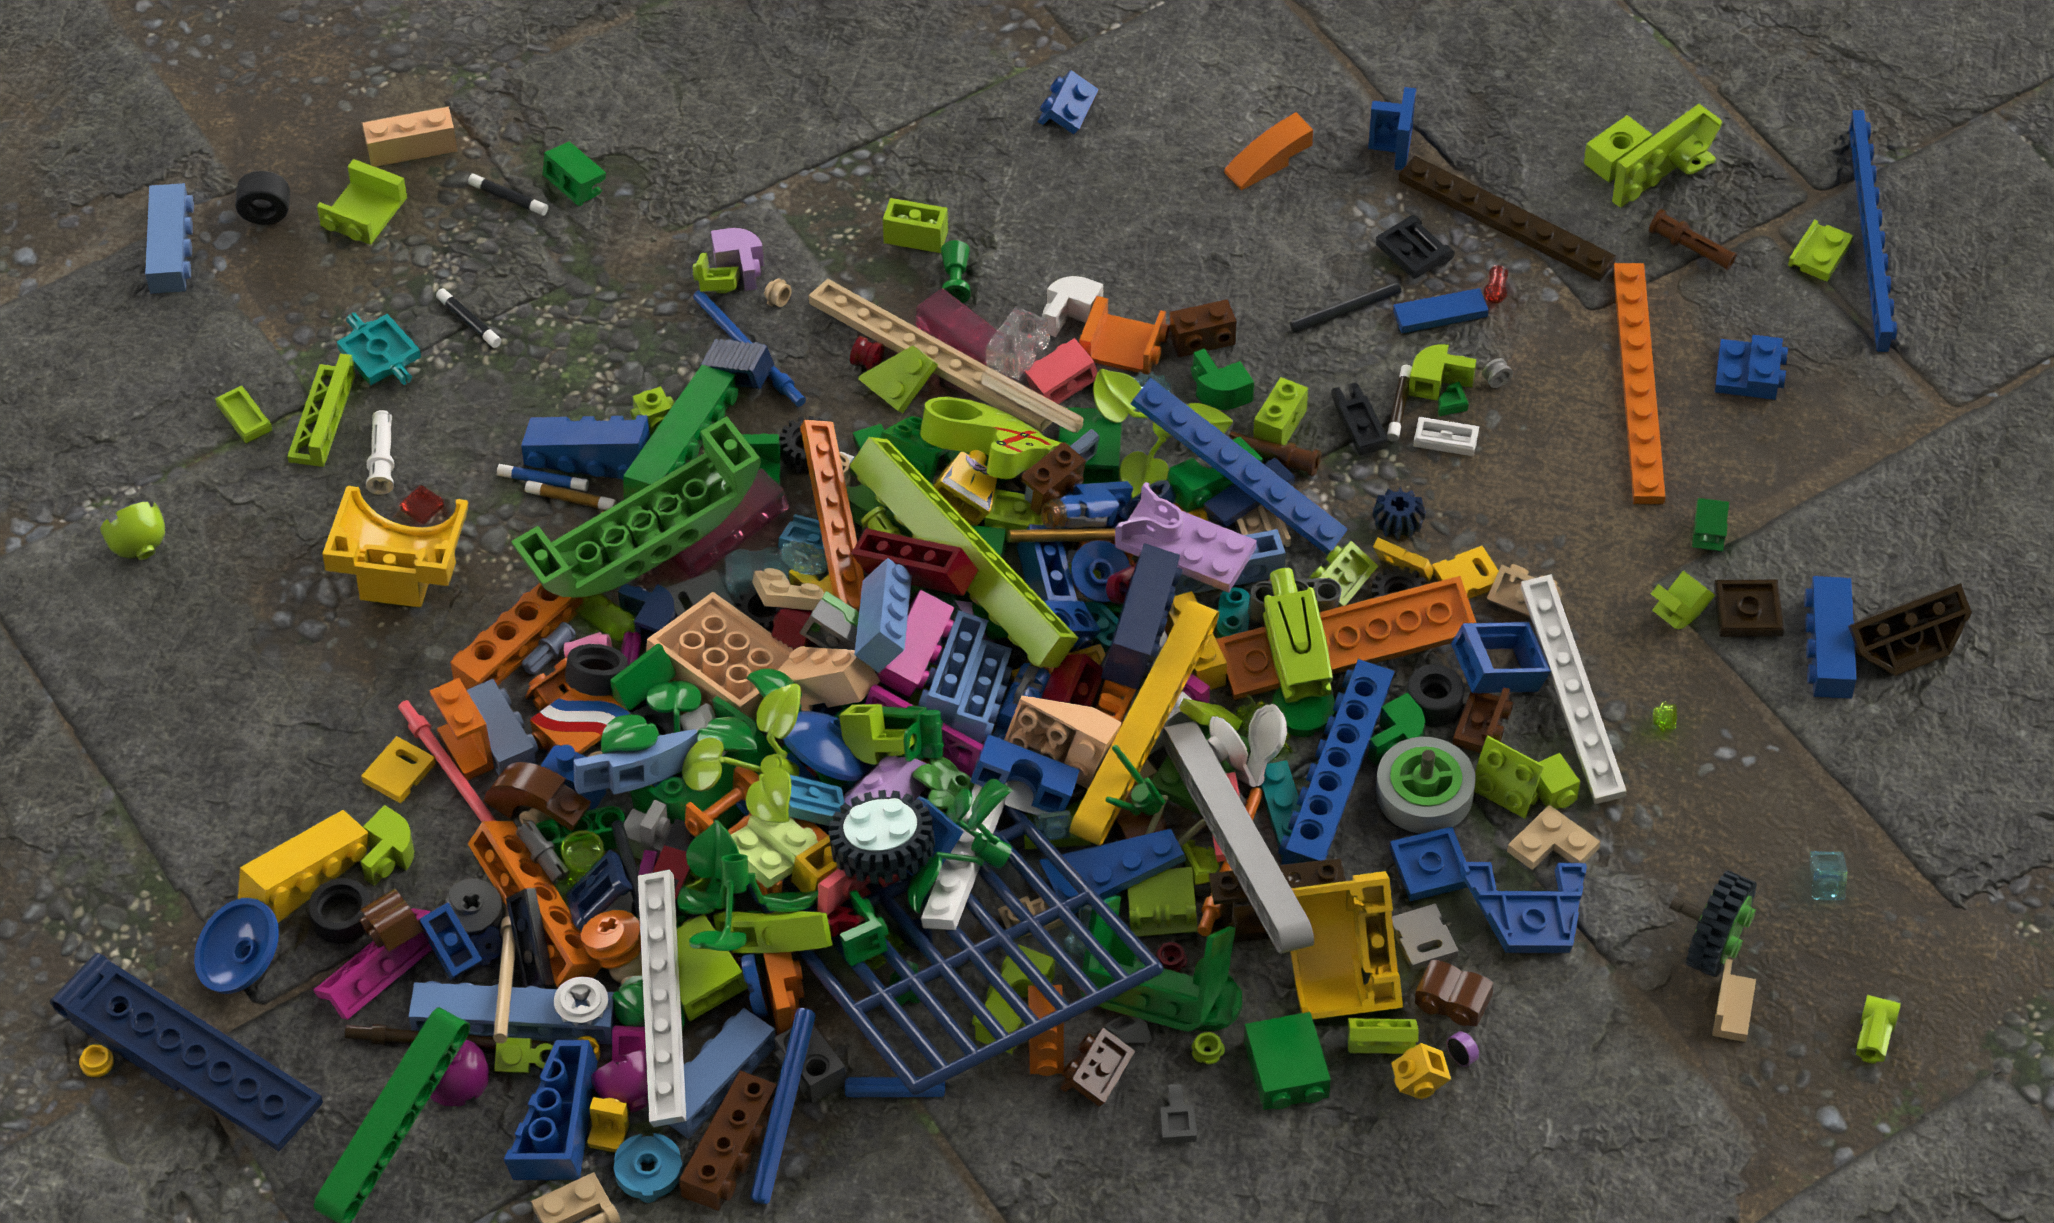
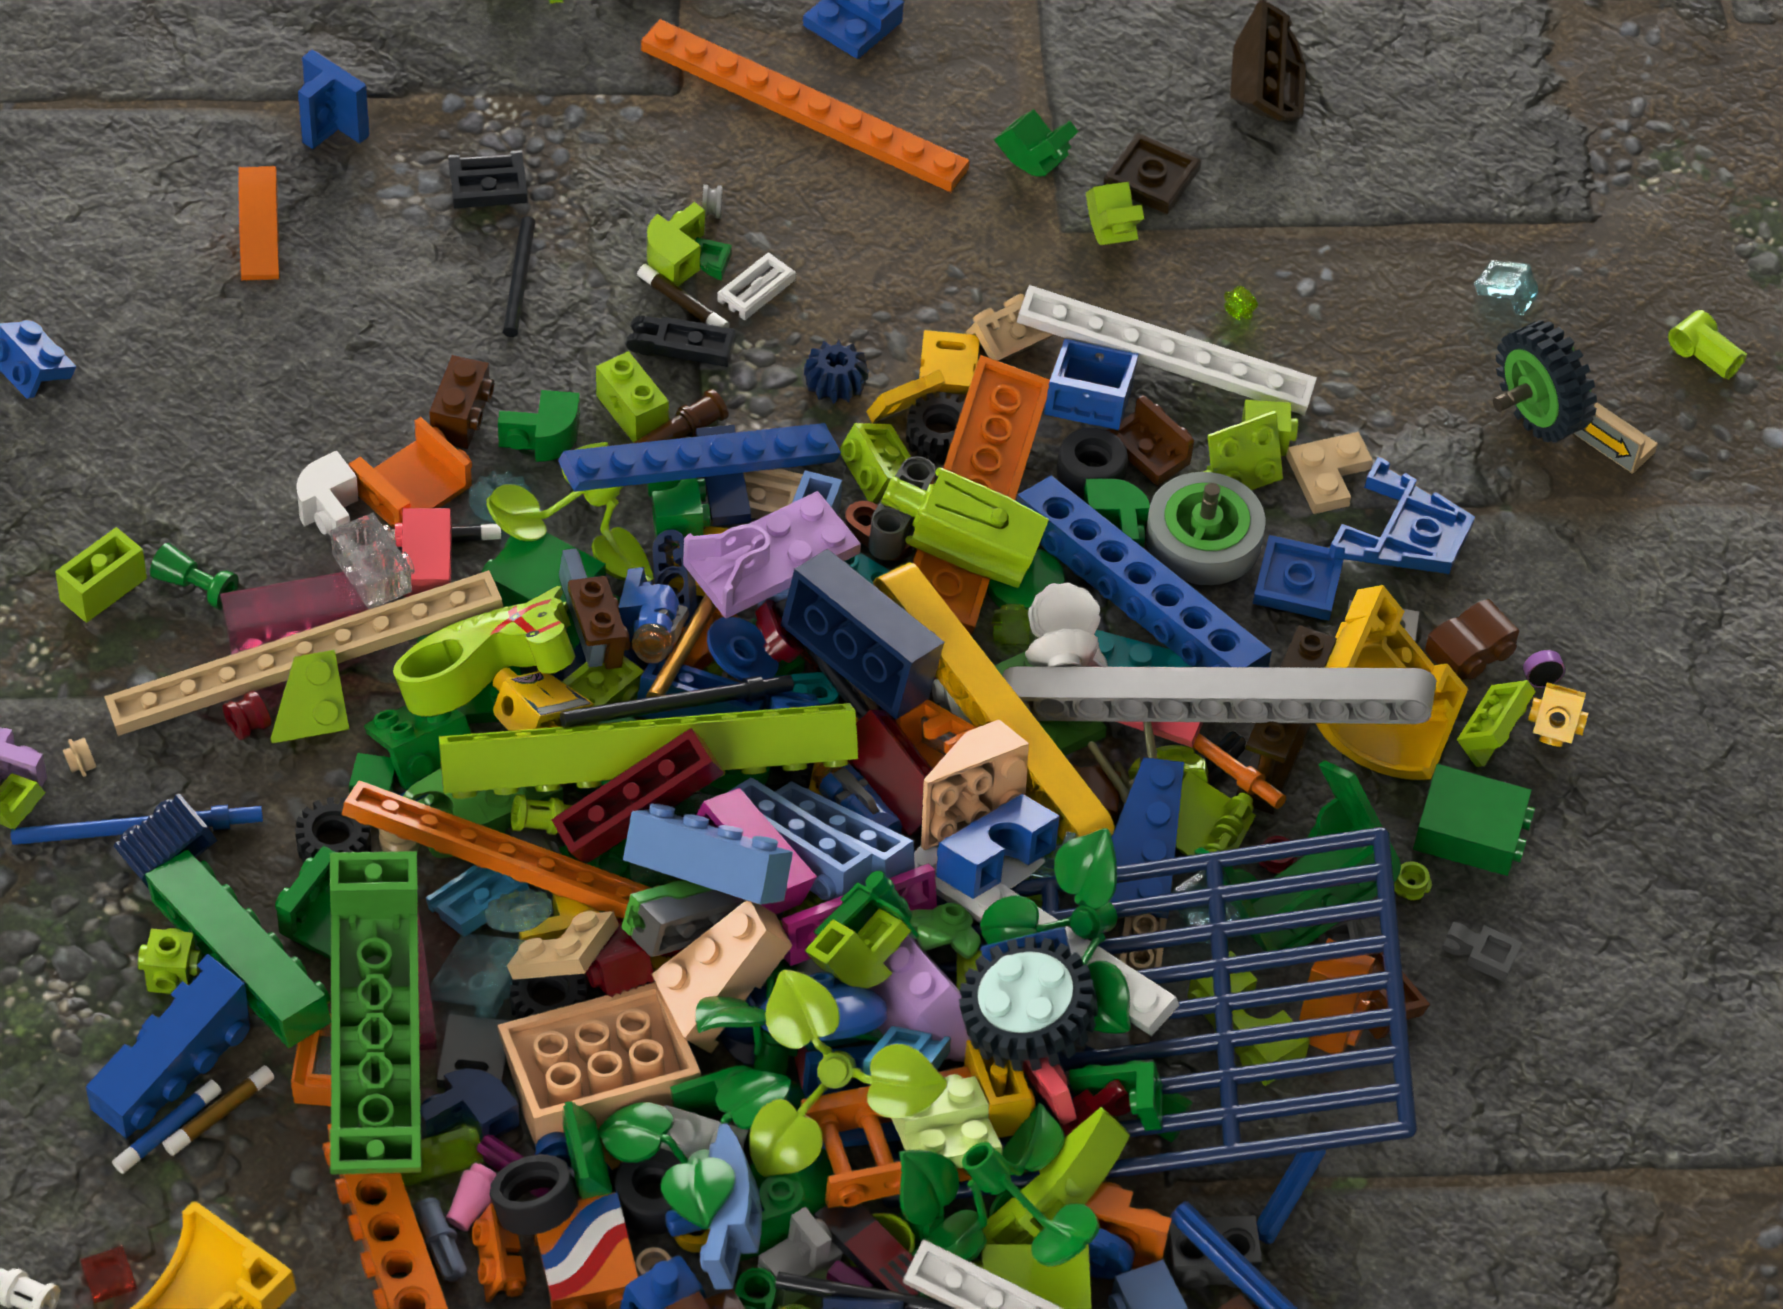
camera: 65 degrees left, 0 degrees up
(1032, 400) = (466, 587): tan axle -> none
(1061, 586) = (749, 689): none -> black bar
(1144, 795) = (1088, 756): green plant -> none
(1203, 712) = (1003, 653): lime tile -> none
(1440, 310) = (587, 204): blue tile -> none
(1496, 288) = (600, 146): clear red pin -> none
(1507, 218) = (505, 90): dark brown plate -> none
(1831, 641) = (1234, 131): blue brick -> none

